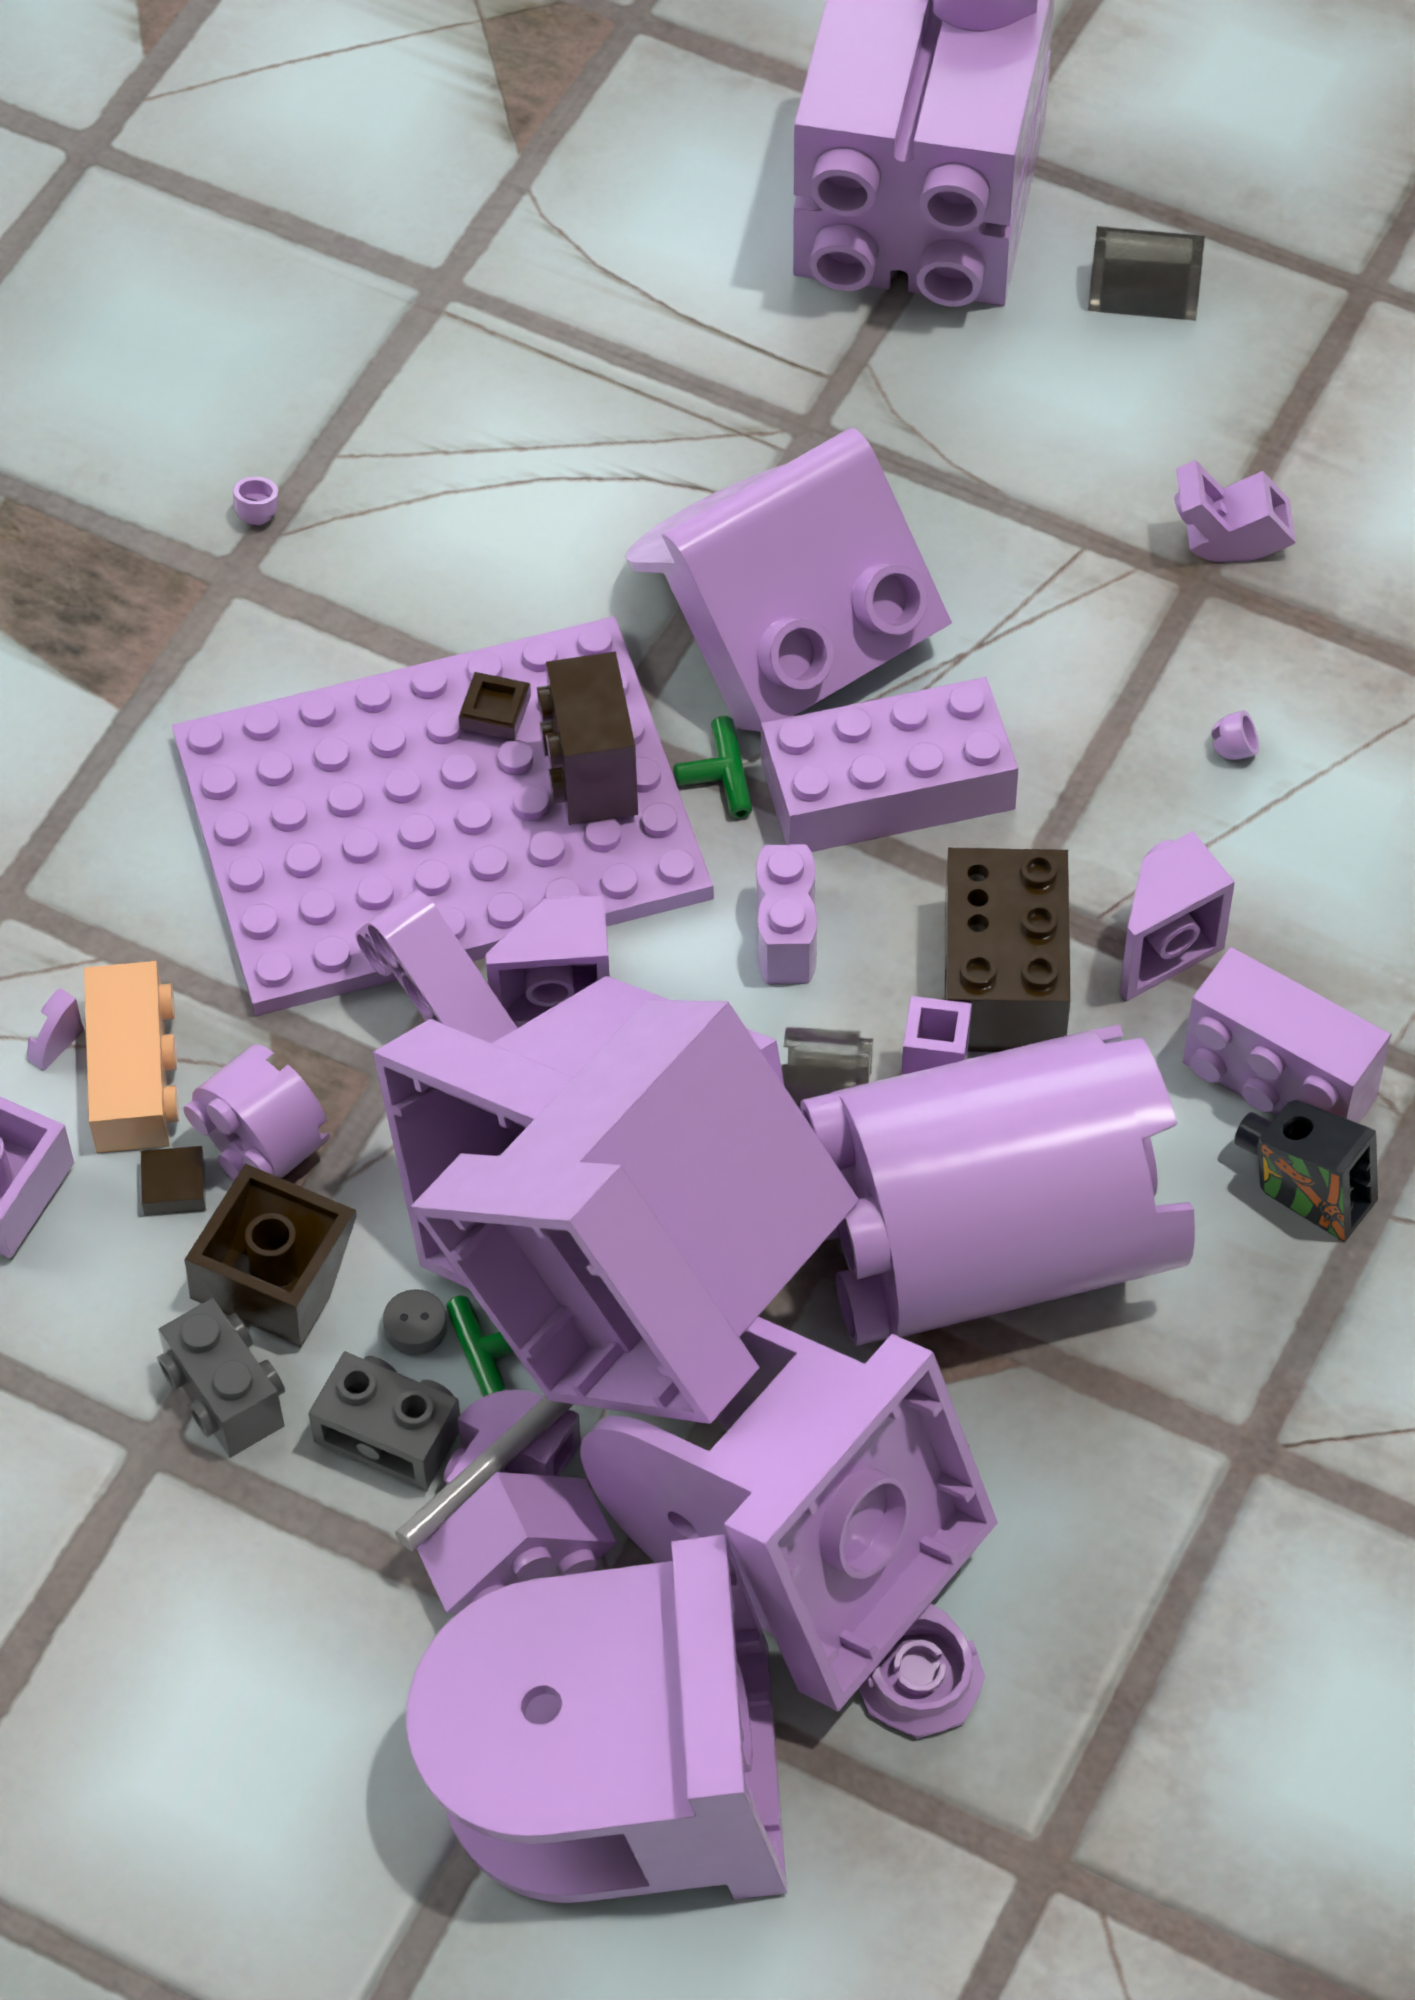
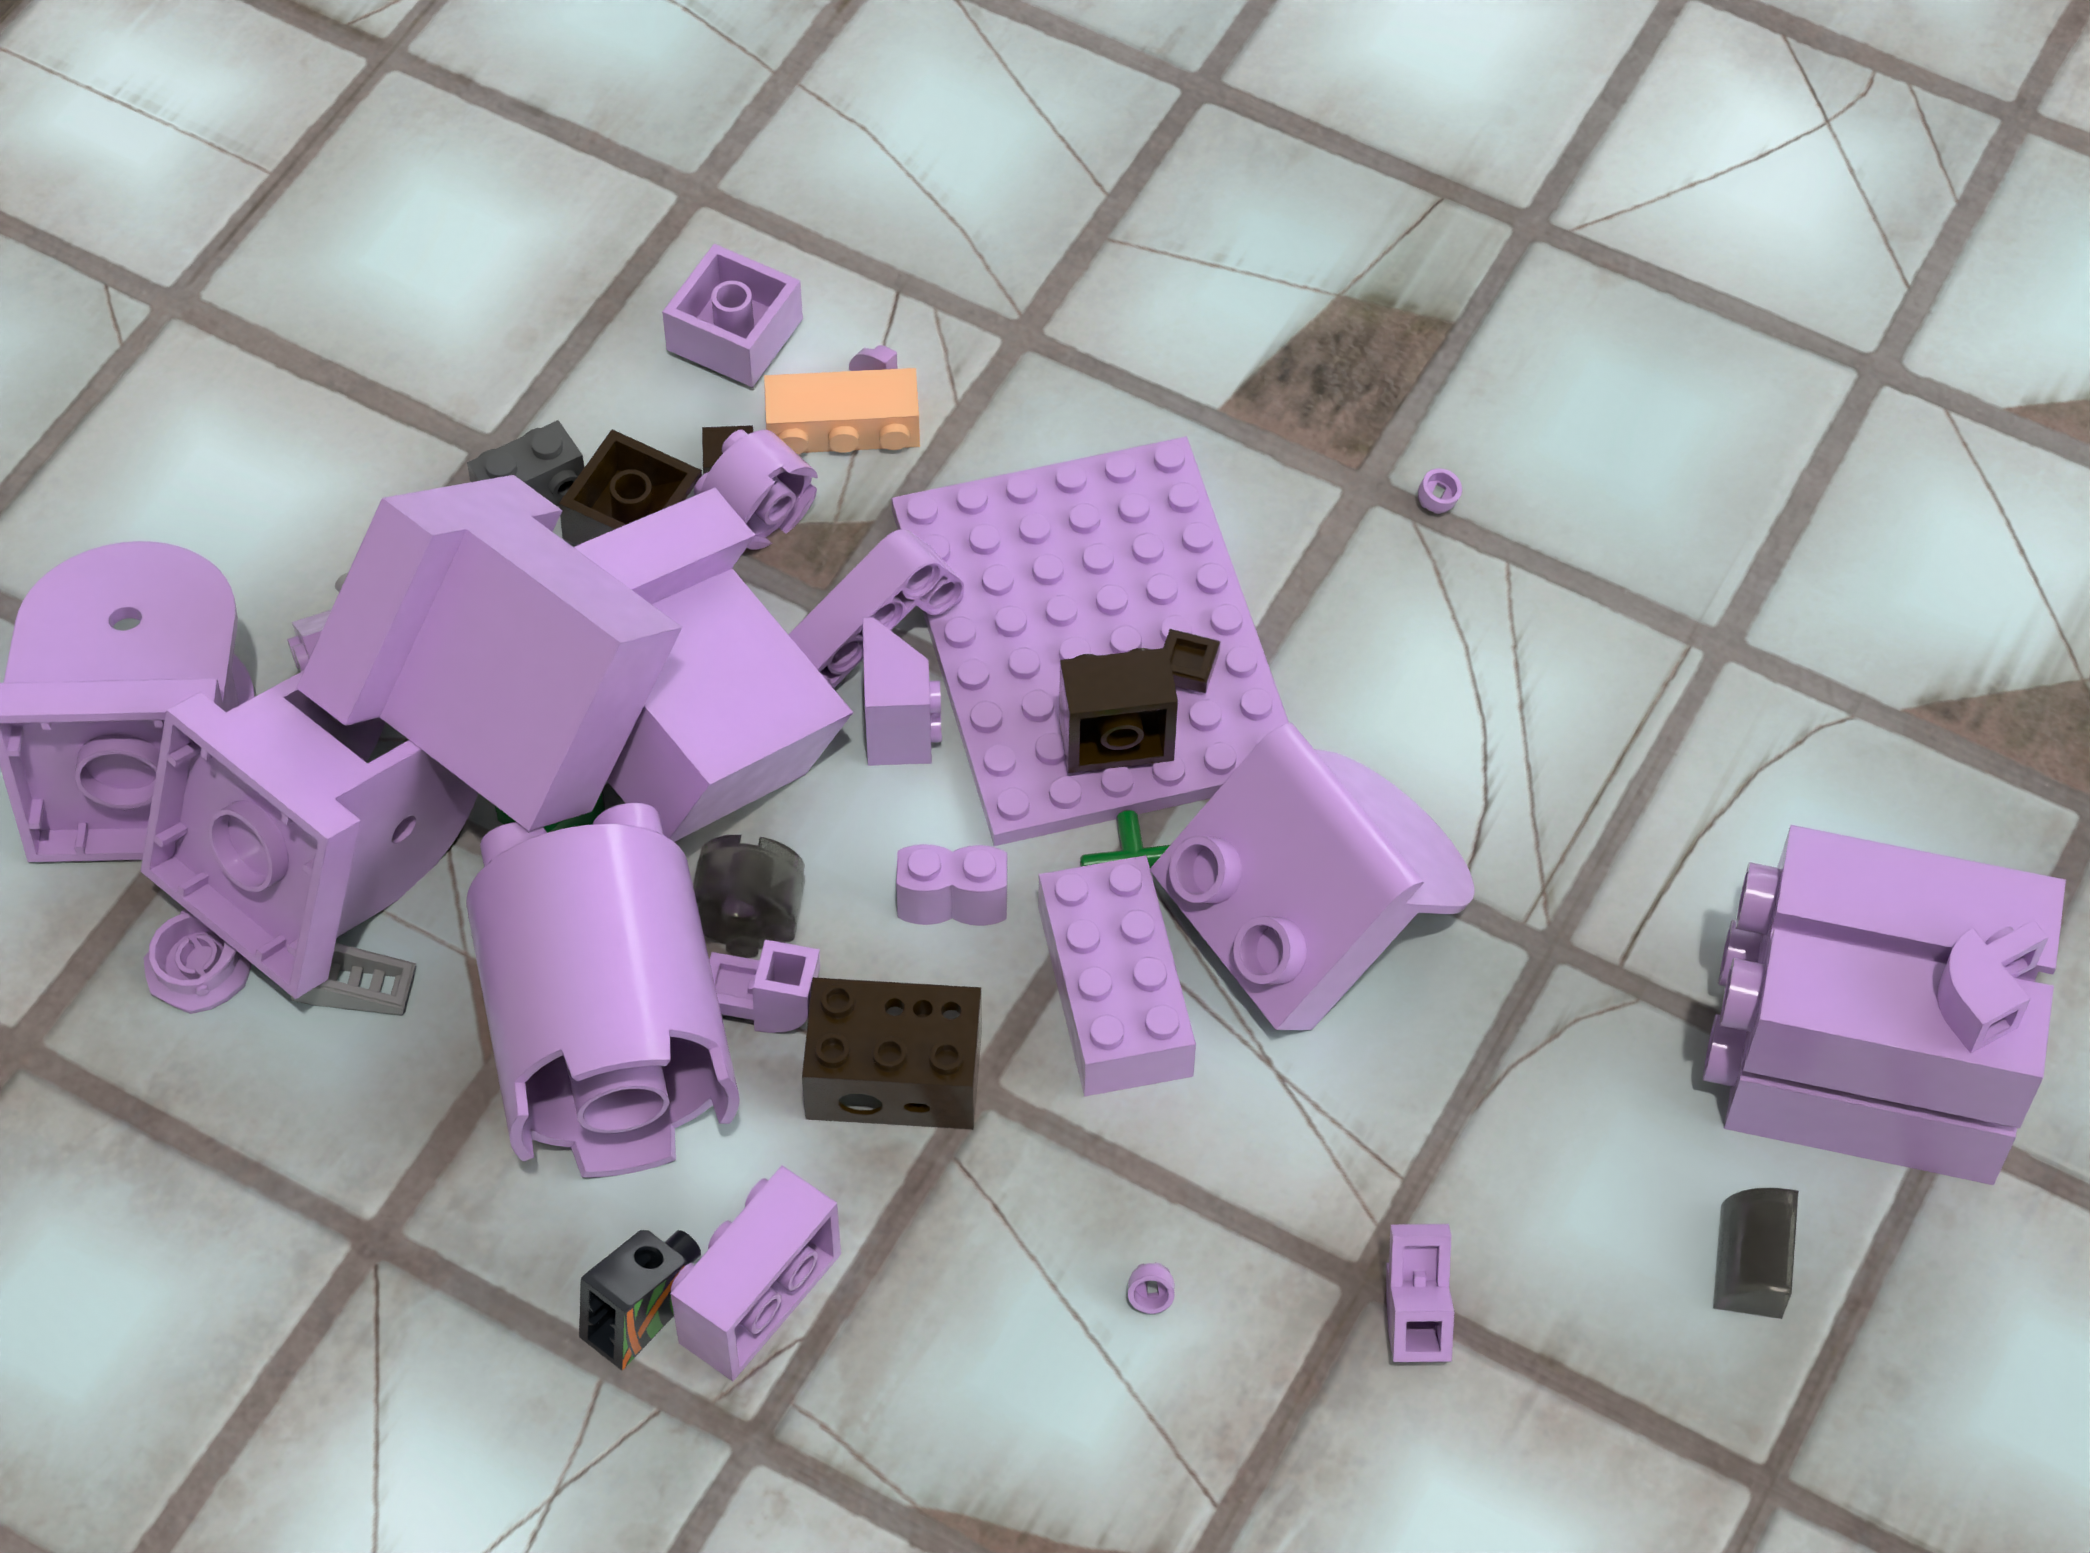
camera: 90 degrees right, 0 degrees up
(1175, 914) = (917, 1185): lavender slope -> none

